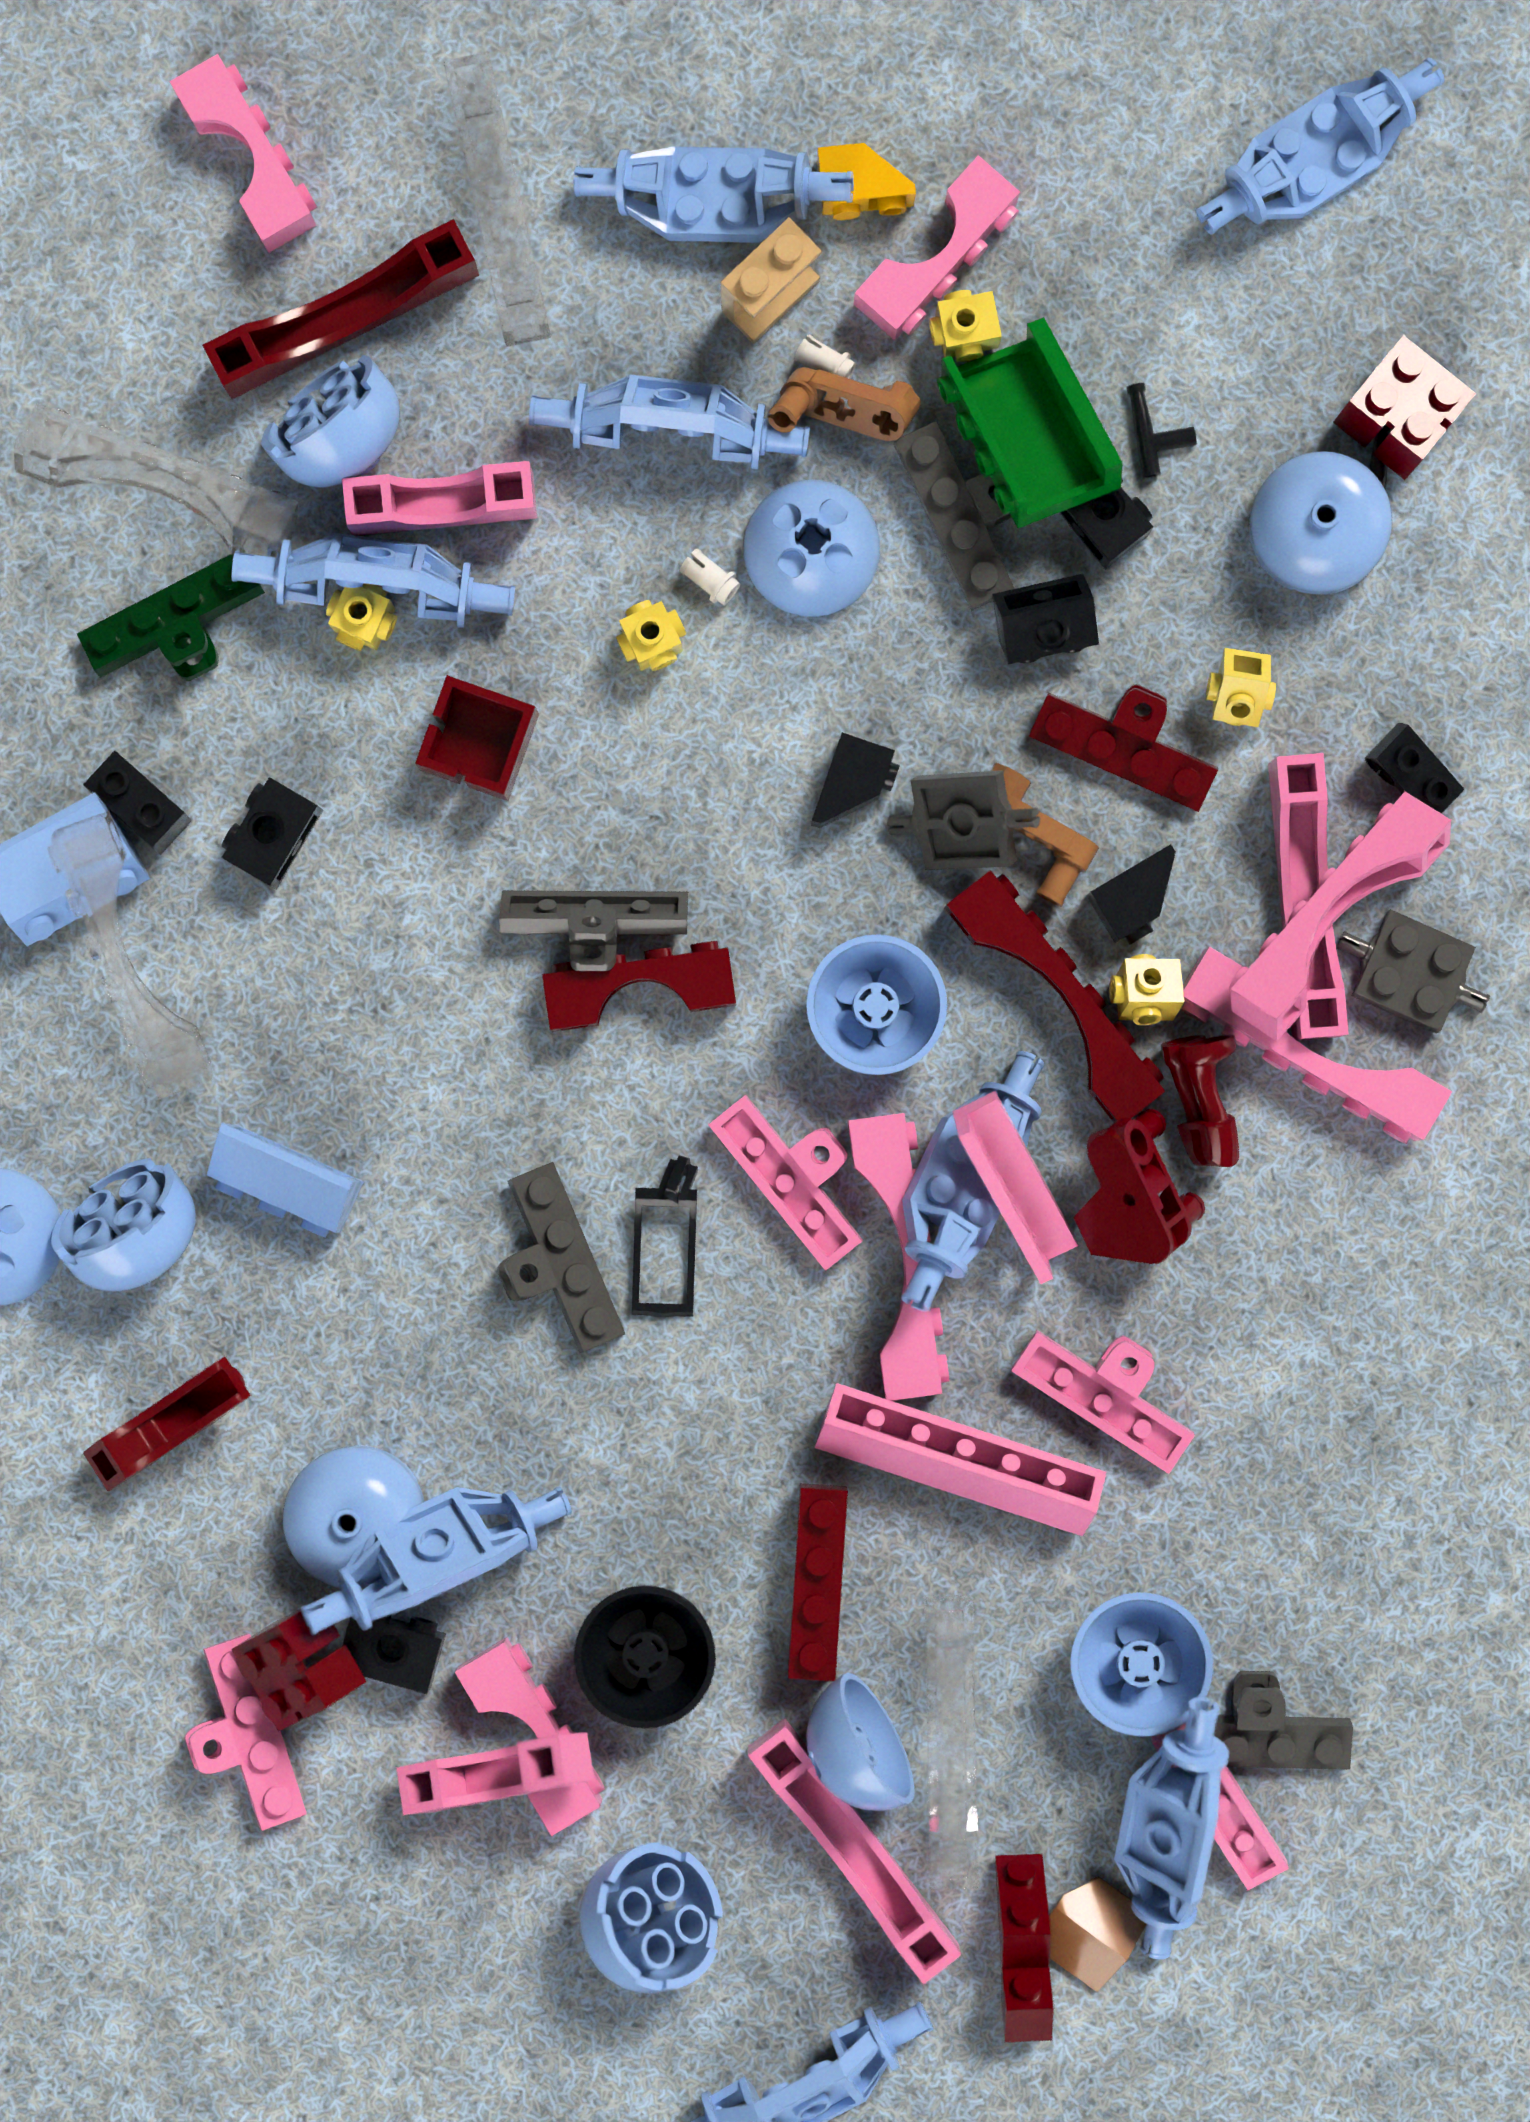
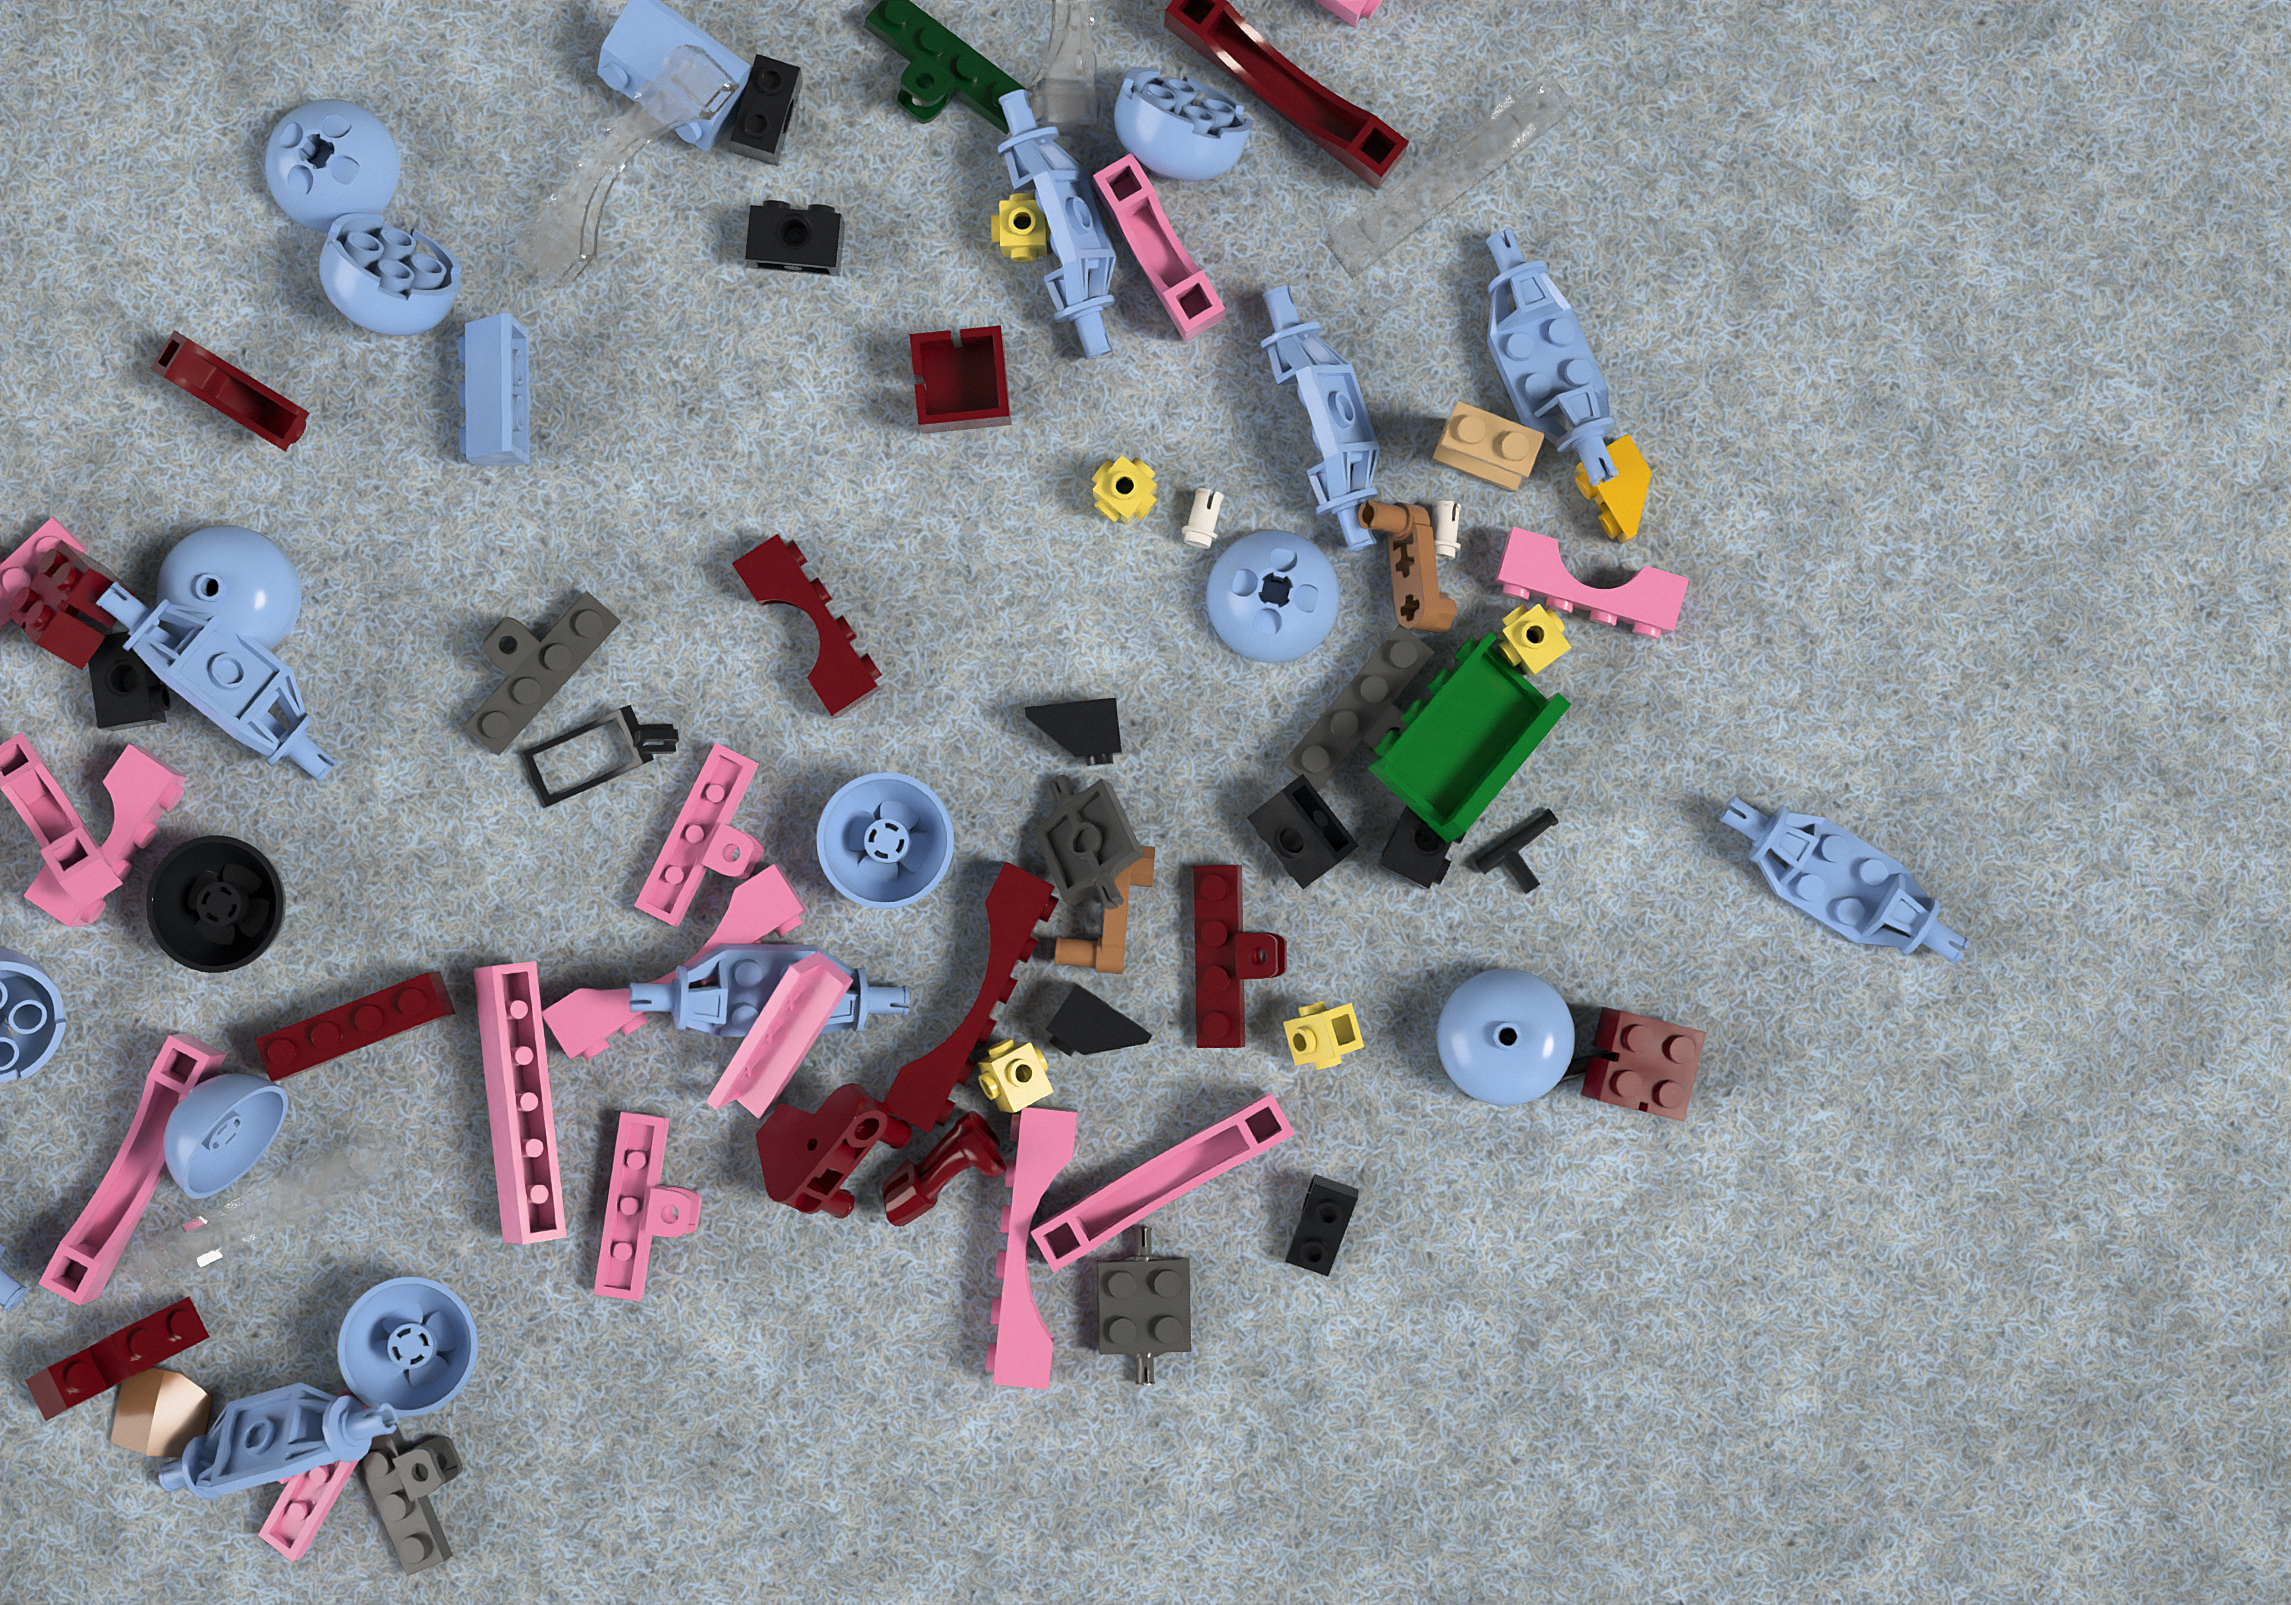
camera: 65 degrees right, 0 degrees up
(593, 919) = (850, 557): dark grey plate -> none
(1397, 848) = (1244, 1240): bright pink arch -> none

